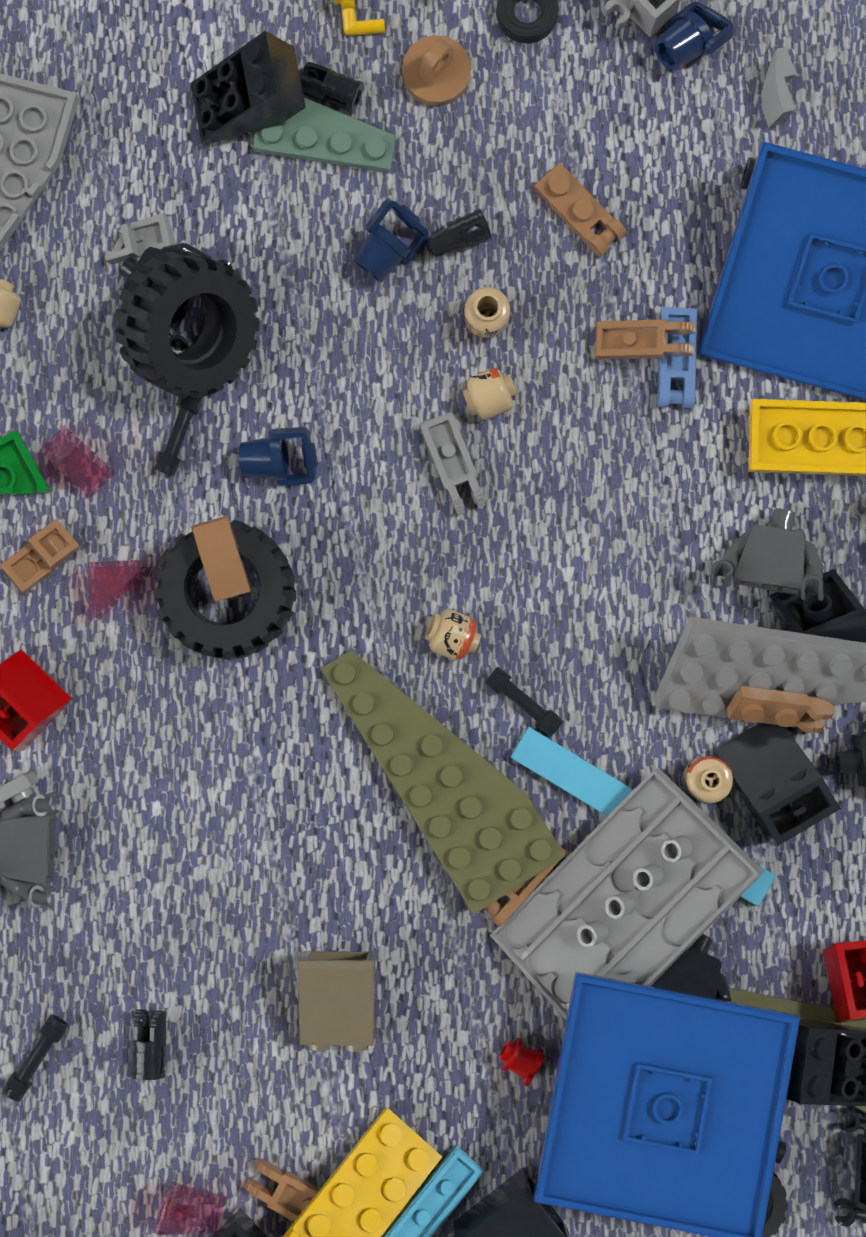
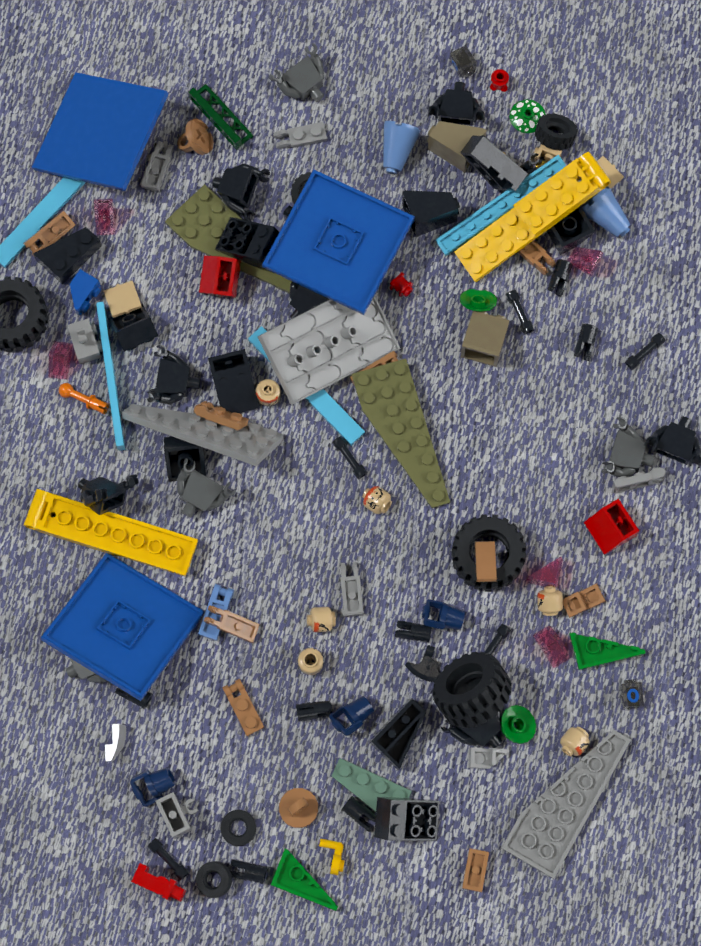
camera: 160 degrees left, 10 degrees down
(87, 301) = (525, 724): none -> green dish
(96, 535) = (550, 601): none -> tan head
(111, 48) = (475, 870): none -> medium nougat plate
(229, 1161) = (561, 275): none -> black hinge
(283, 364) = (426, 668): none -> black piece
(300, 232) = (398, 733): none -> black wedge
(307, 1095) = (526, 326): none -> black bar
(315, 417) = (417, 631): none -> black hinge
(370, 1070) = (478, 300): none -> green dish

